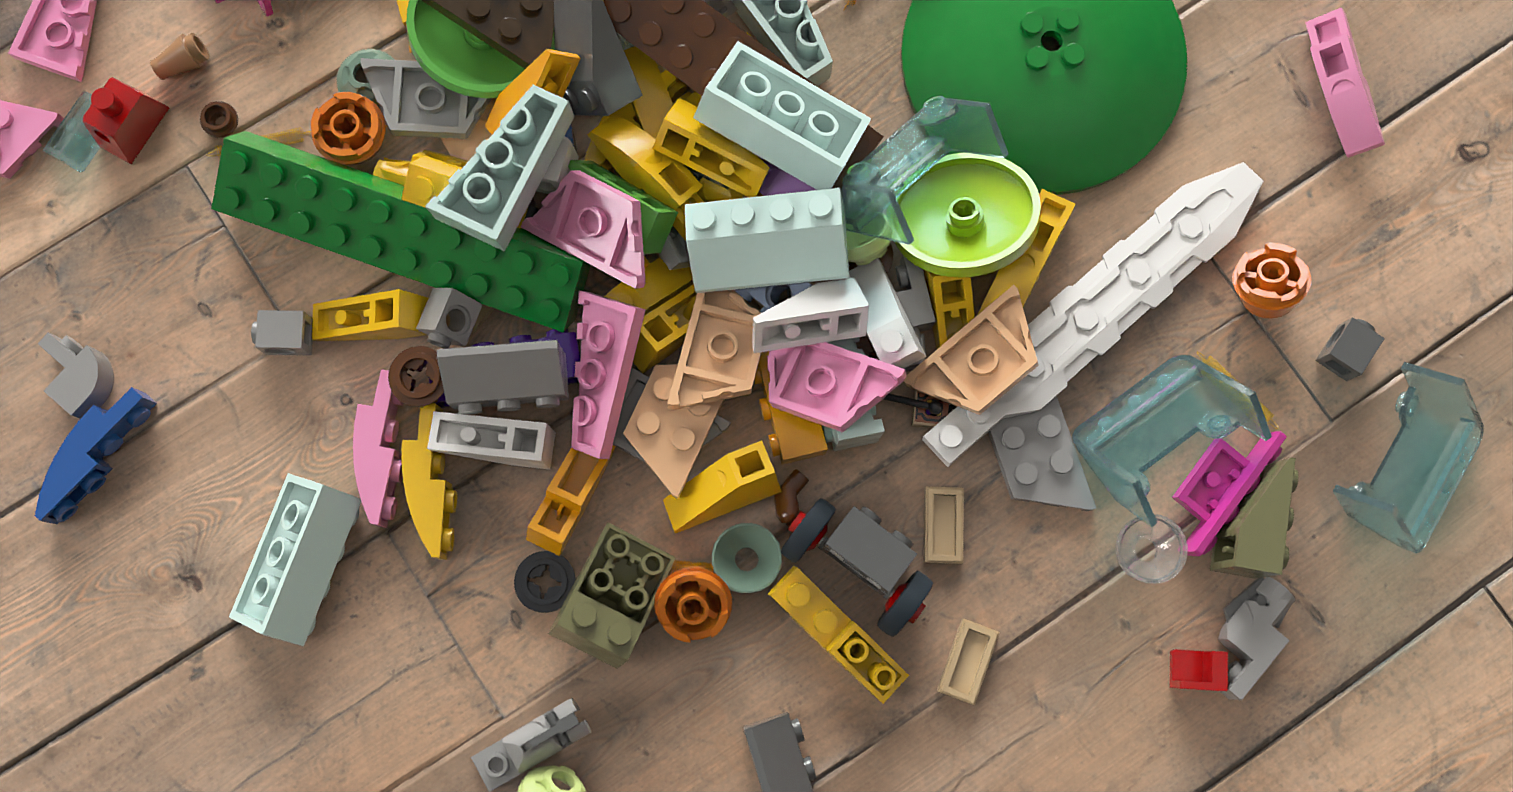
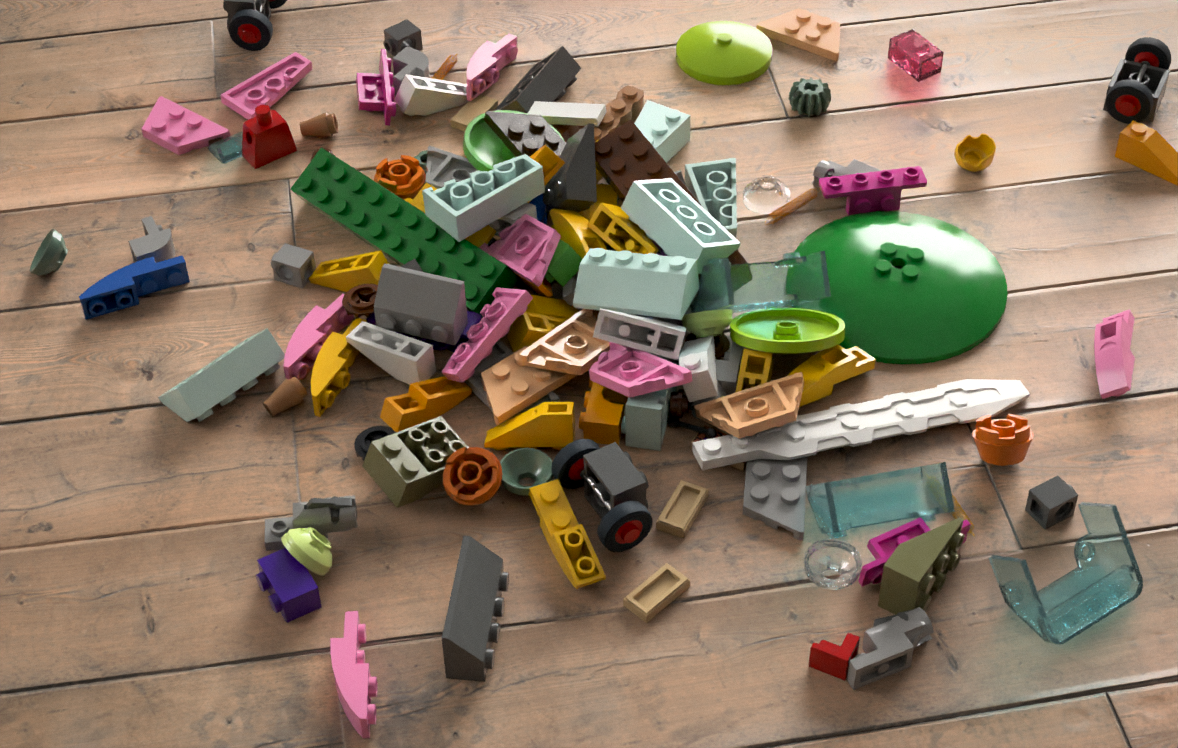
camera: 30 degrees right, 35 degrees down
(392, 556) = (285, 396): none -> medium nougat cone

